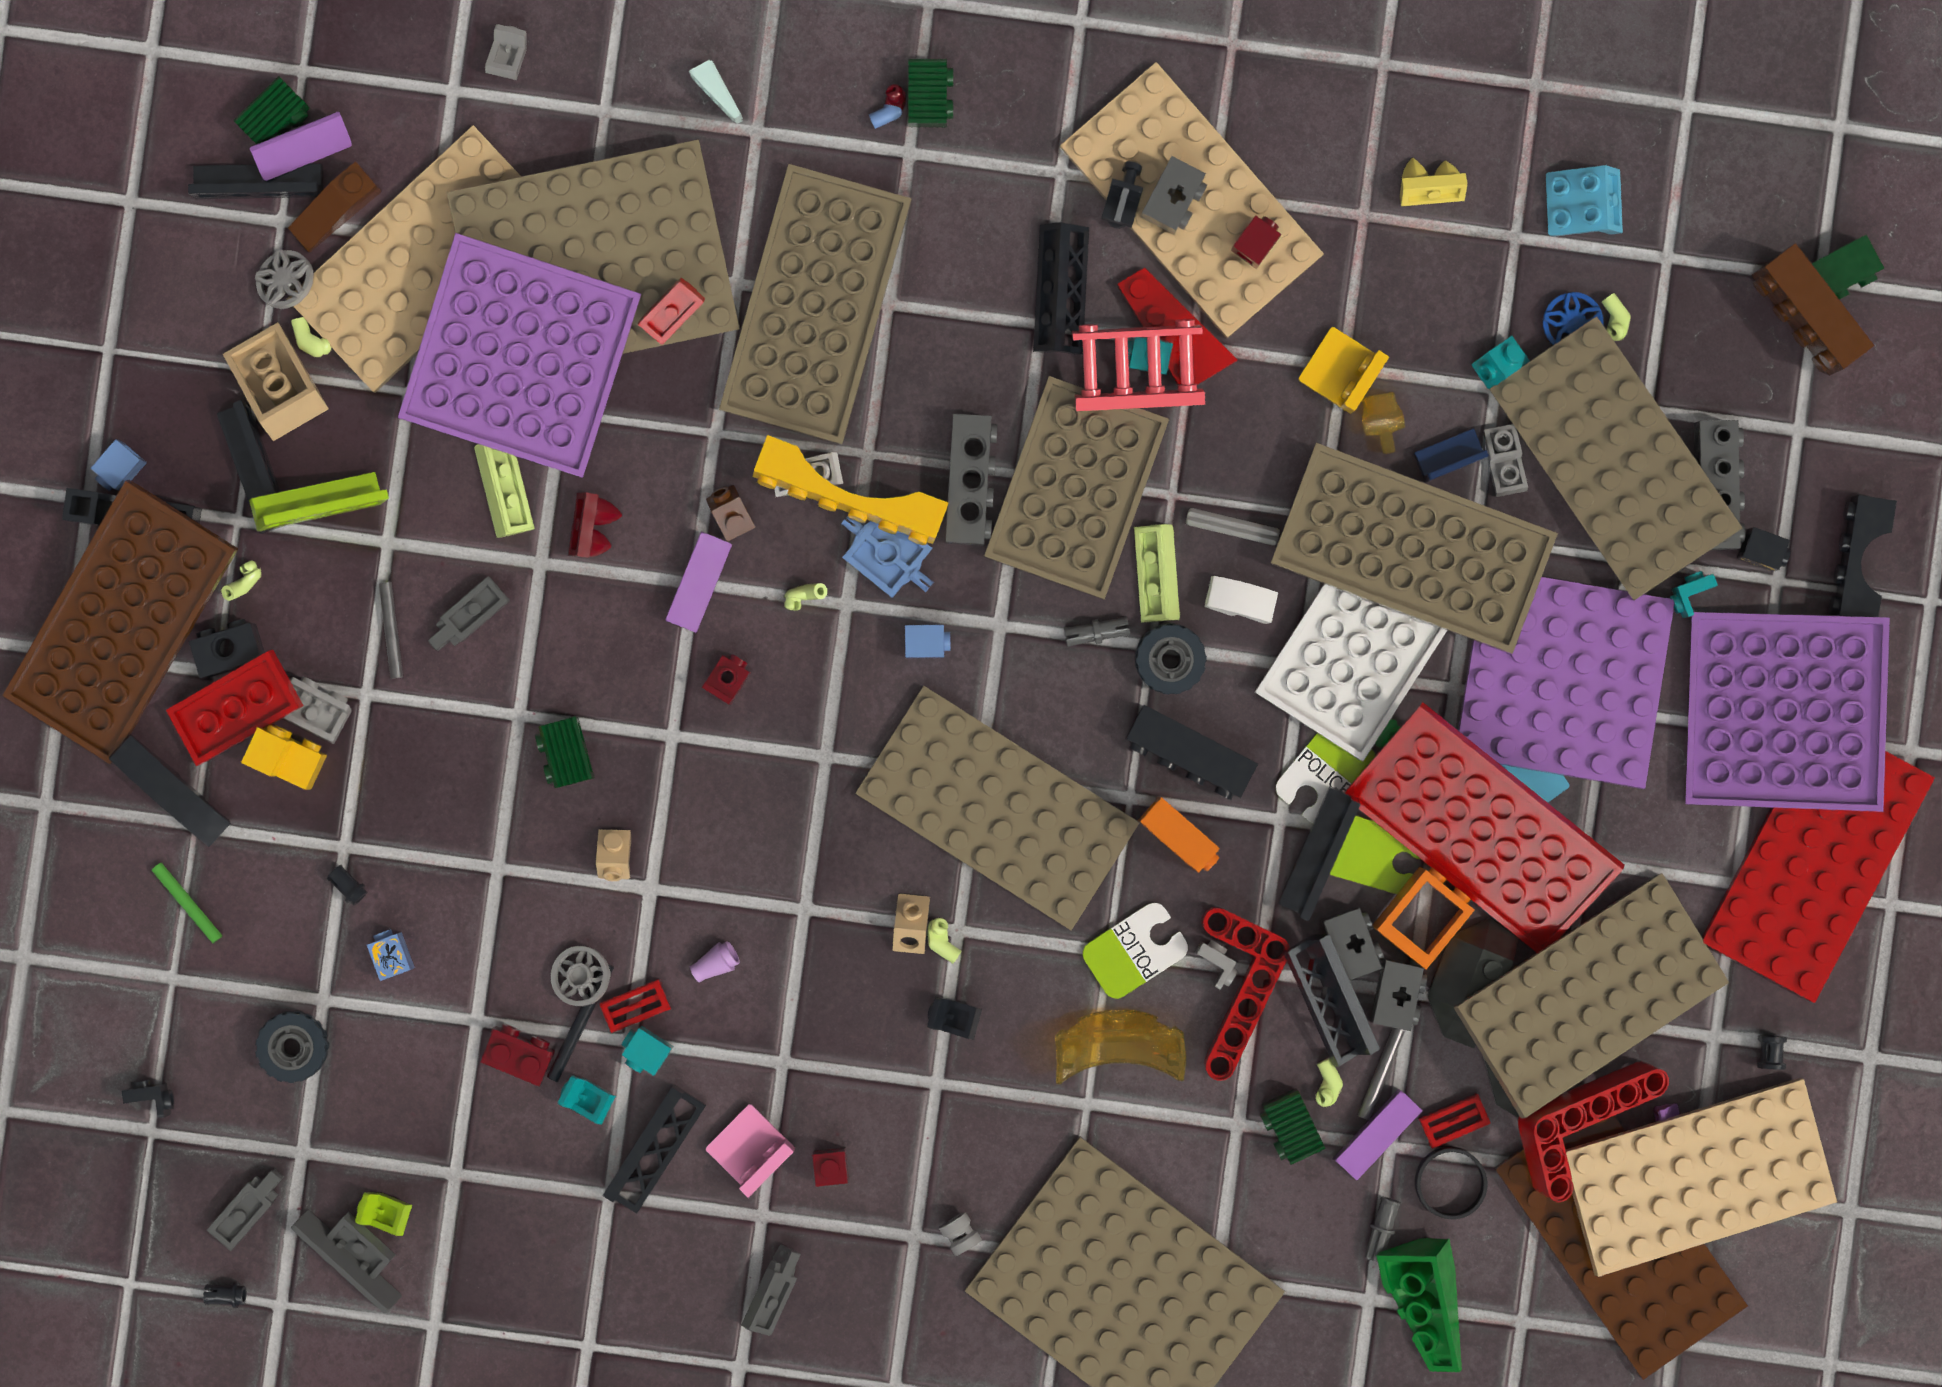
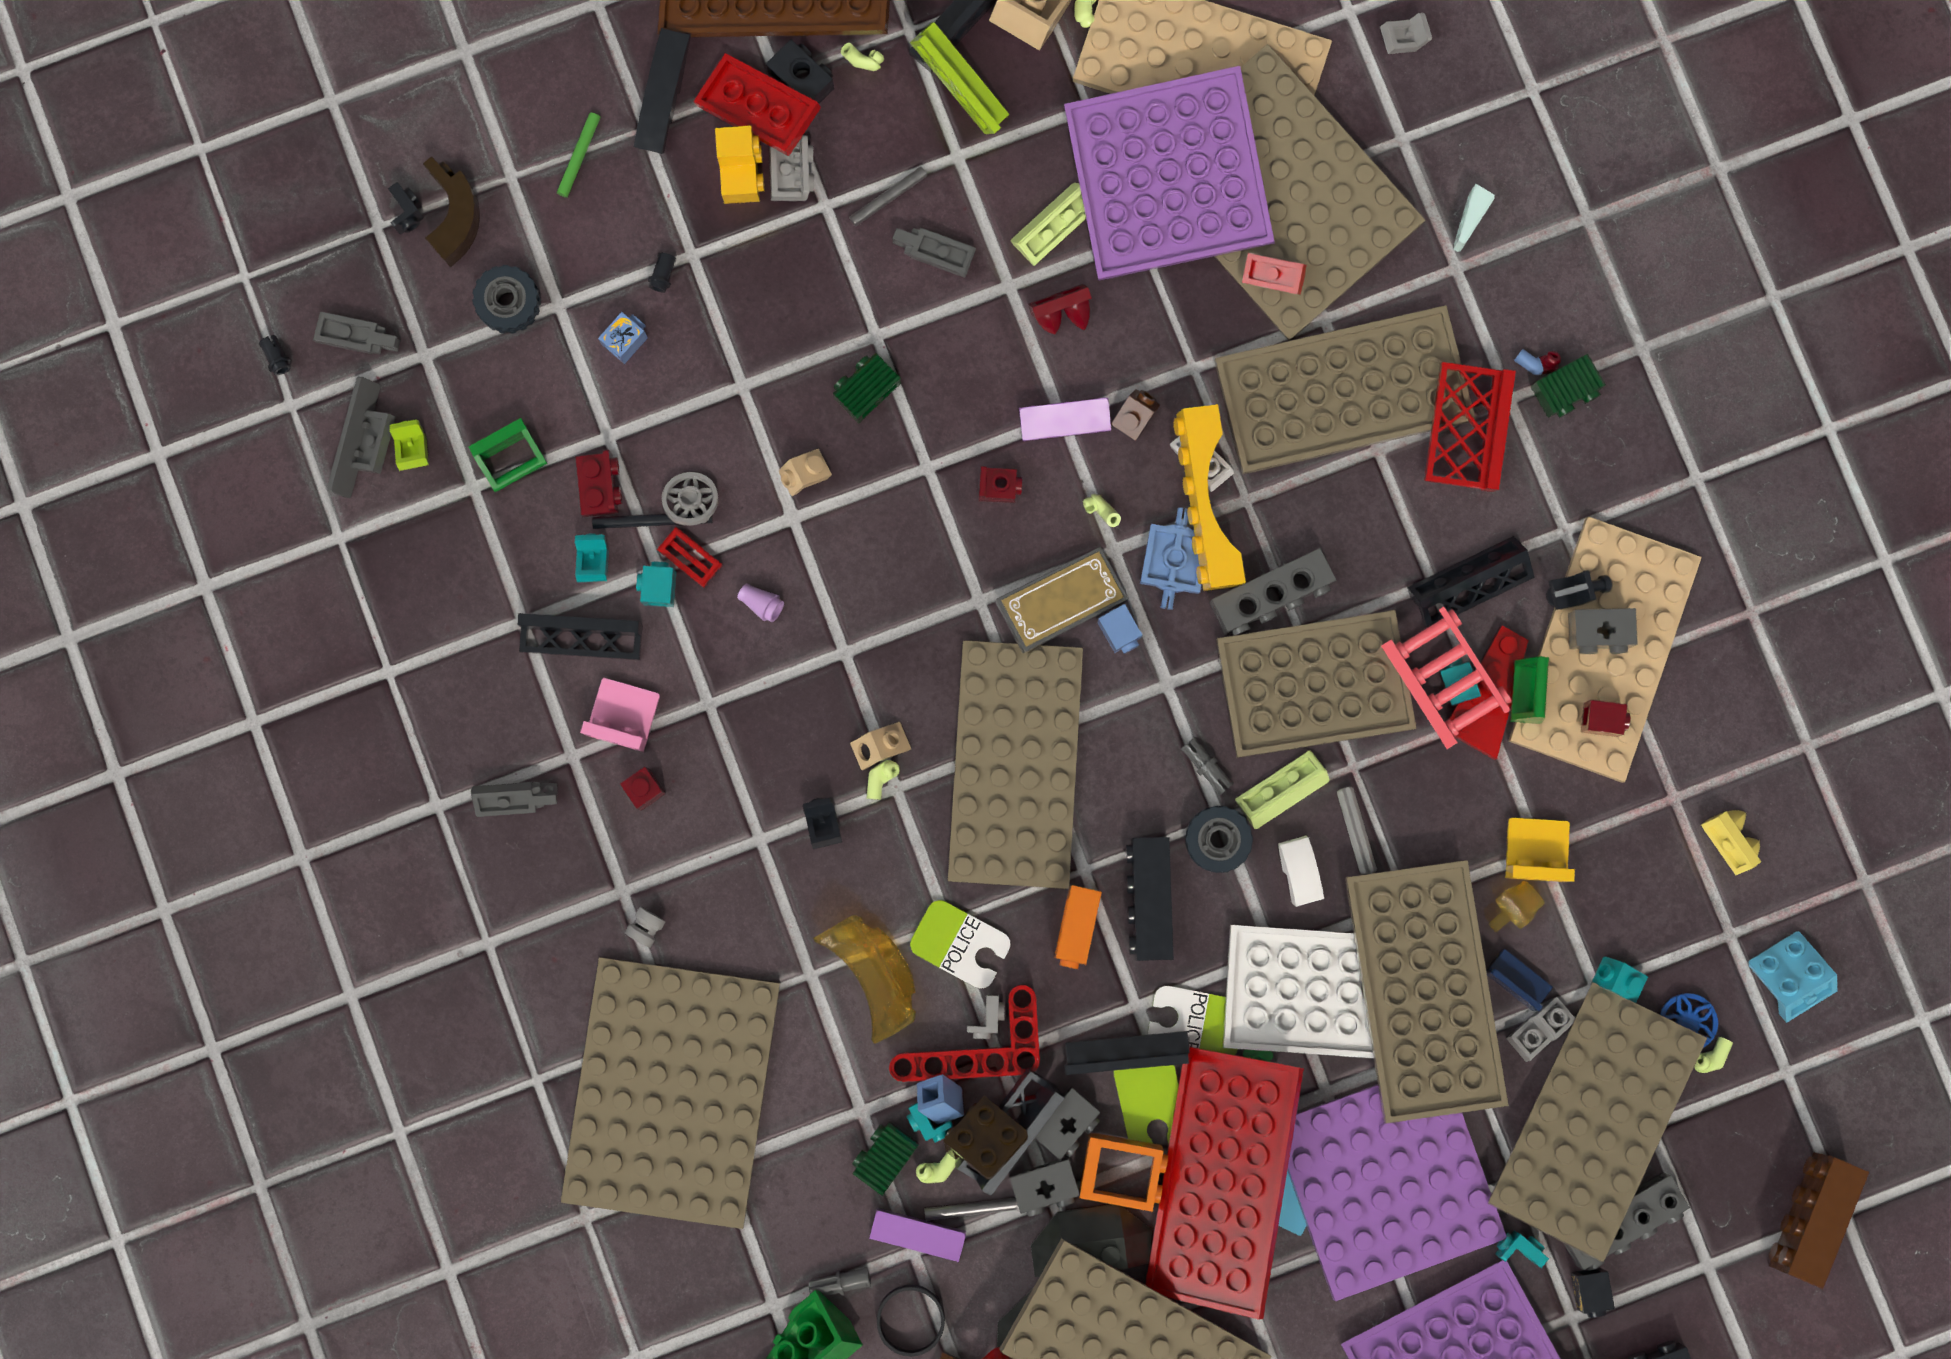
camera: 60 degrees right, 5 degrees down
(195, 1051) = (462, 221): none -> dark brown arch
(425, 1125) = (501, 440): none -> green tile
(868, 680) = (1061, 600): none -> pearl gold tile
(933, 187) = (1495, 430): none -> red fence
(1192, 296) = (1529, 690): none -> green tile
(1267, 1047) = (940, 1099): none -> medium blue brick
(1276, 1075) = (921, 1122): none -> teal bracket
(1325, 1026) = (985, 1138): none -> dark brown bracket
(1429, 1131) = (973, 1285): red tile -> none
(1850, 265) = (1874, 1233): dark green brick -> none

